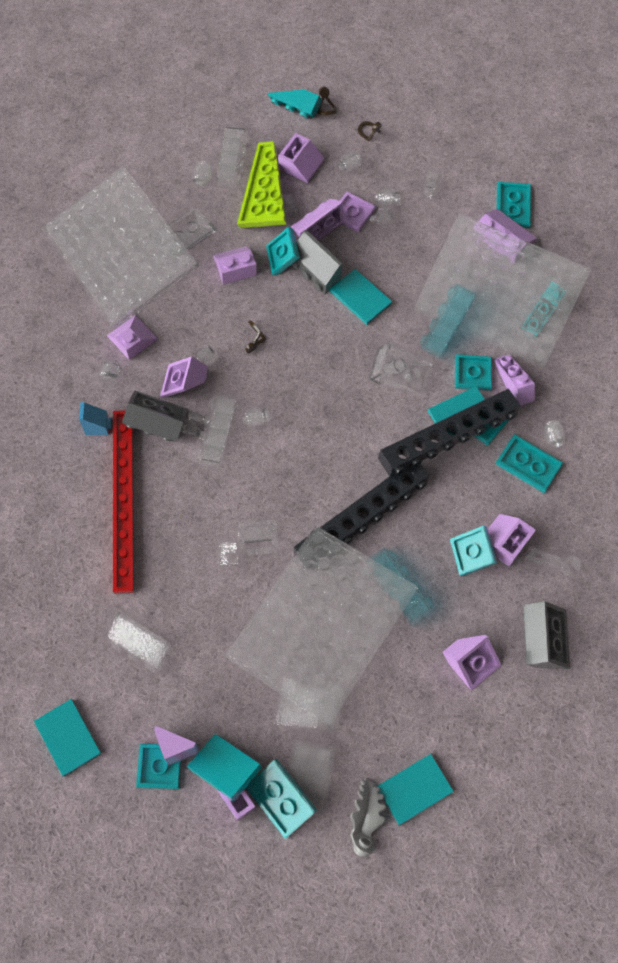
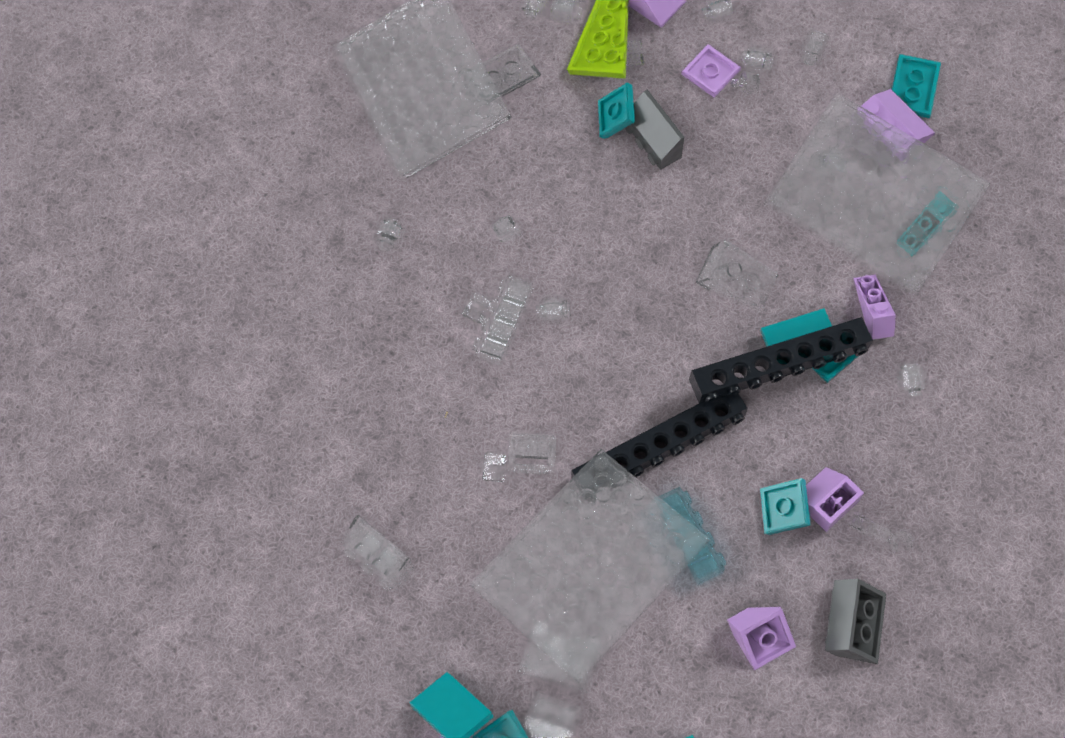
camera: 15 degrees right, 0 degrees up
(67, 737) = (279, 649): teal tile -> none
(94, 420) = (362, 287): dark azure slope -> none
(123, 506) = (381, 388): red plate -> none
(132, 337) = (421, 193): lavender slope -> none
(154, 416) = (433, 292): dark grey slope -> none
(154, 771) = (378, 698): teal tile -> none
(174, 746) = (398, 677): lavender slope -> none
(183, 376) = (474, 249): lavender slope -> none
(235, 264) = (557, 119): lavender slope -> none
(252, 346) = (561, 222): dark brown piece -> none
(321, 220) = (667, 79): lavender slope -> none
(360, 296) = (703, 178): teal tile -> none
(449, 319) = (803, 224): clear light blue brick -> none
(473, 372) = (825, 290): teal tile -> none
(529, 463) = (874, 411): teal tile -> none

